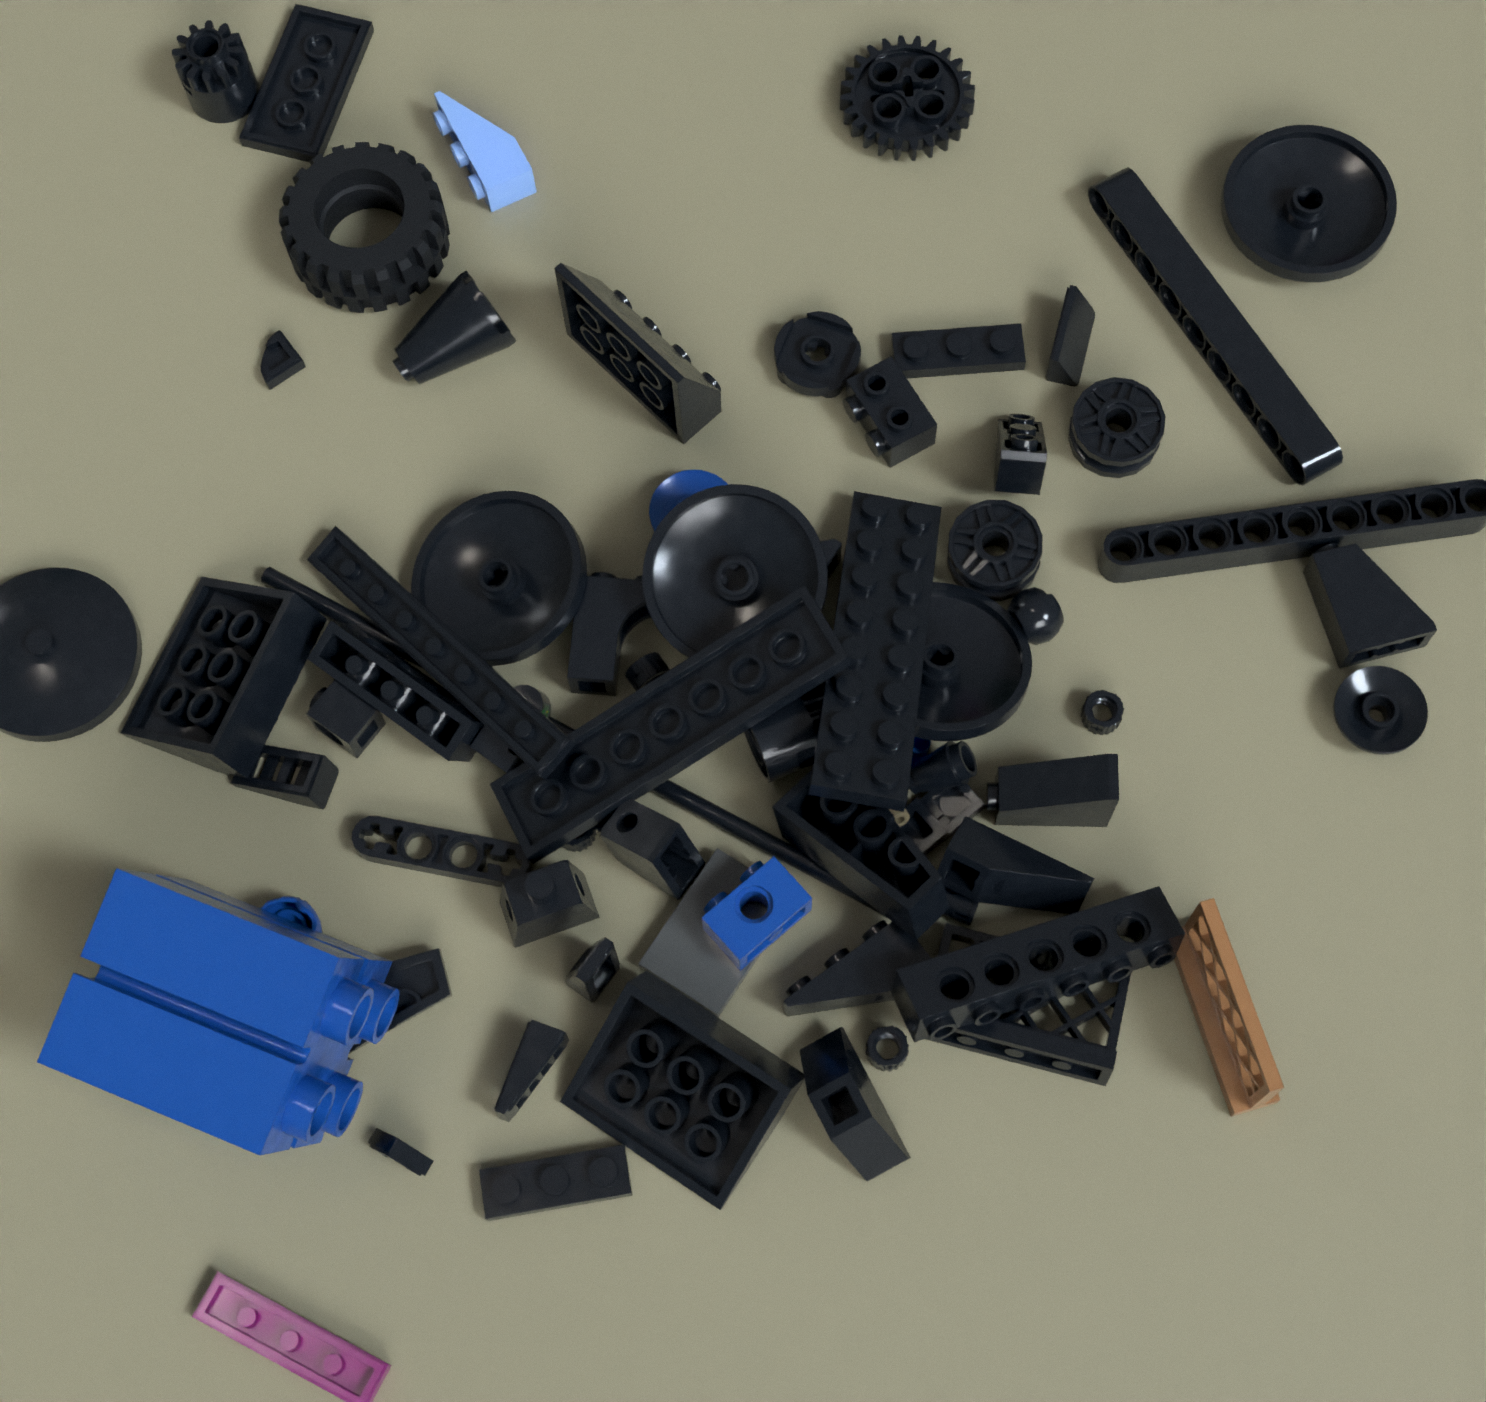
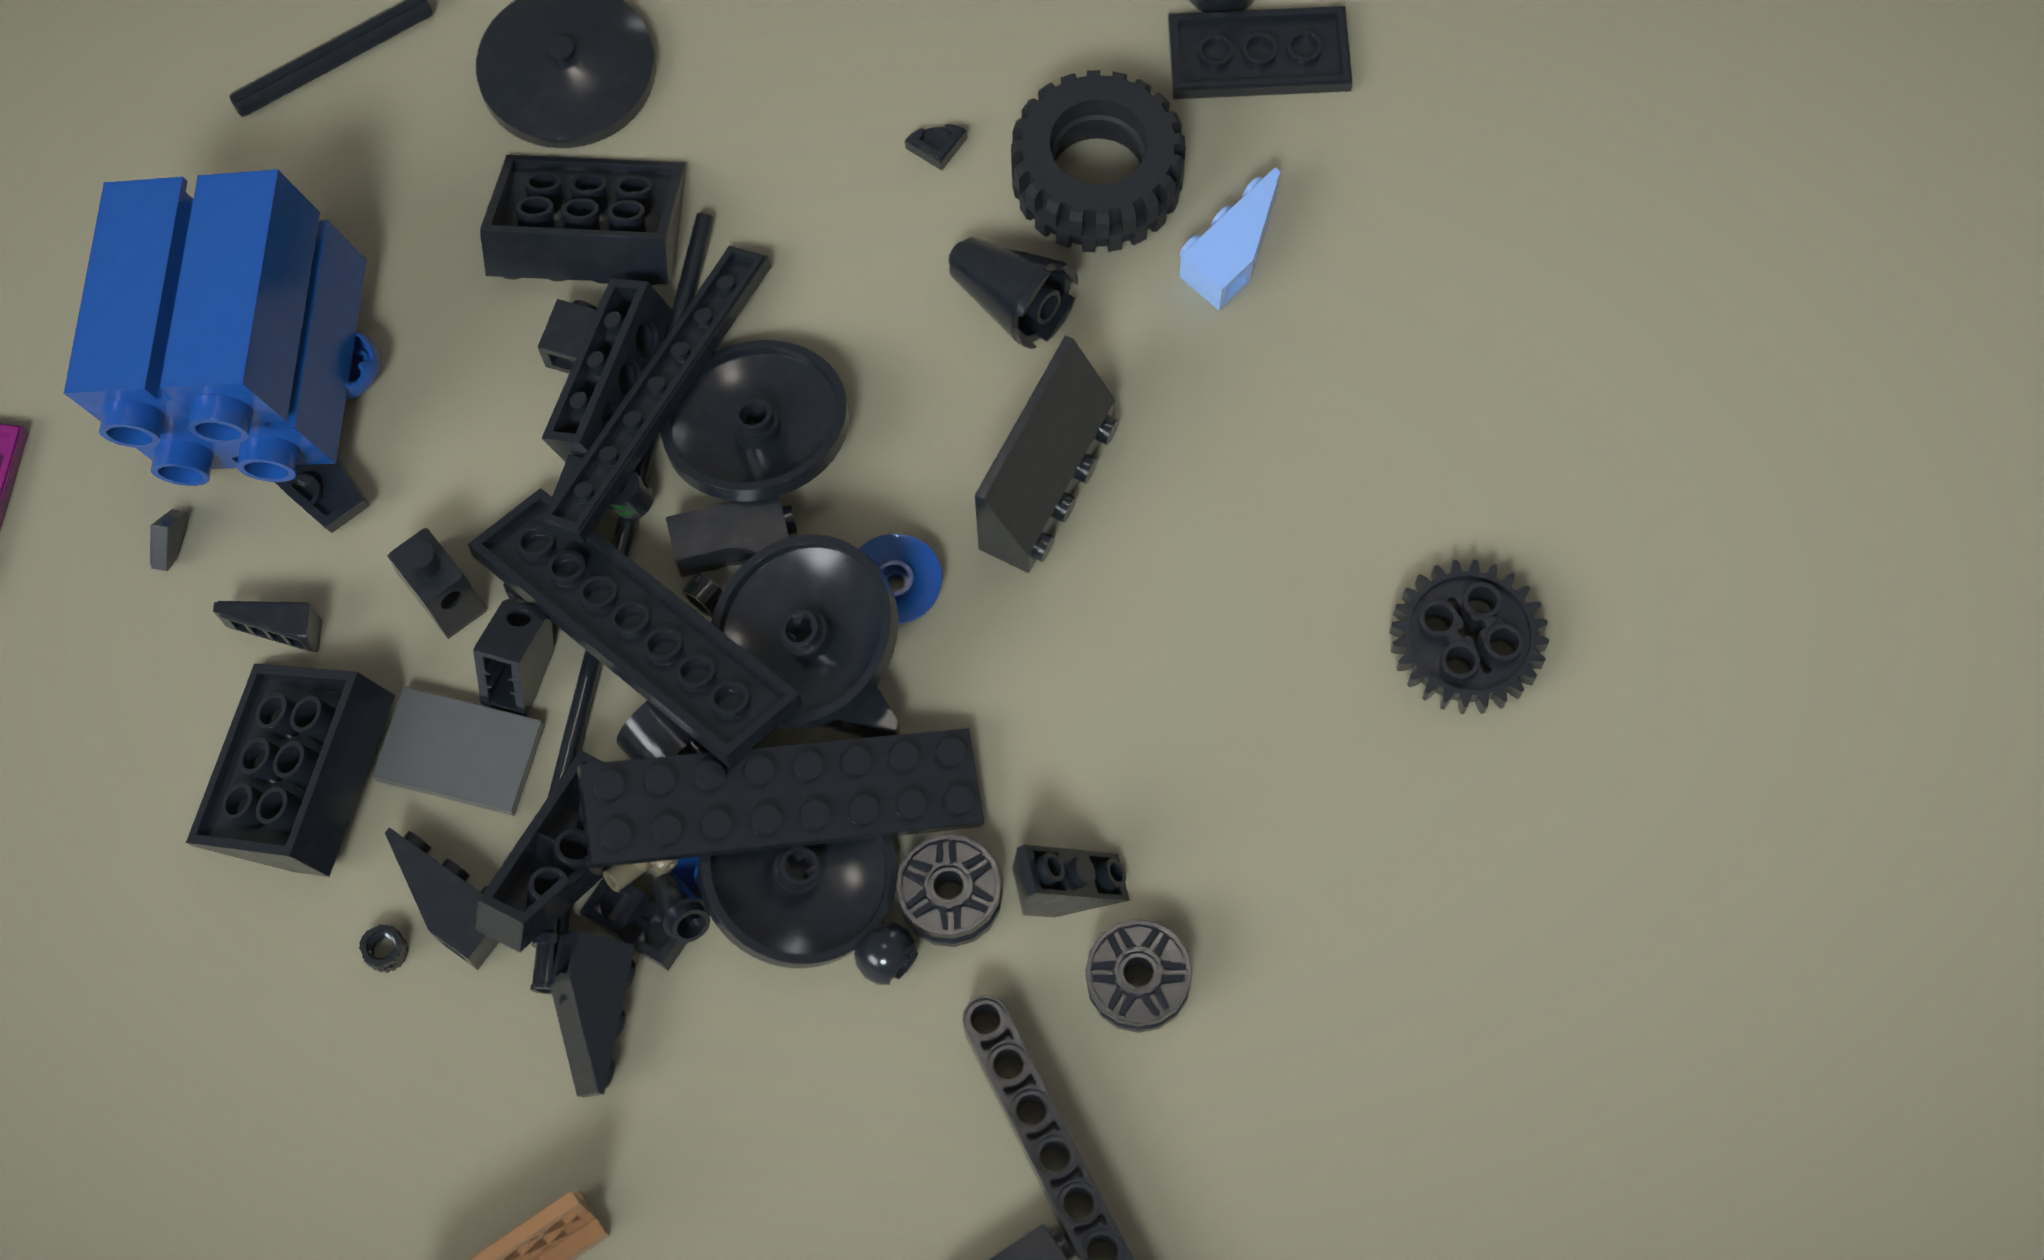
camera: 70 degrees right, 0 degrees up
(312, 783) = (505, 337): black slope -> none
(440, 857) = (465, 473): black beam -> none
(555, 1182) = (175, 686): black plate -> none
(594, 970) = (379, 646): black slope -> none
(747, 938) = (492, 795): blue brick -> none
(817, 377) = (1138, 664): black plate -> none
(850, 1106) = (308, 924): black slope -> none
(889, 412) = (1073, 735): black brick -> none
(959, 351) = (1180, 787): black plate -> none
(1039, 1047) = (419, 1068): black fence -> none
(1056, 792) = (687, 1029): black slope -> none
(1071, 339) = (1234, 898): black slope -> none
(1105, 698) = (807, 1073): black axle -> none
(1140, 916) = (427, 949): black brick -> none
(1215, 327) = (1303, 1048): black beam -> none
(1308, 203) = (1494, 1108): black dish -> none

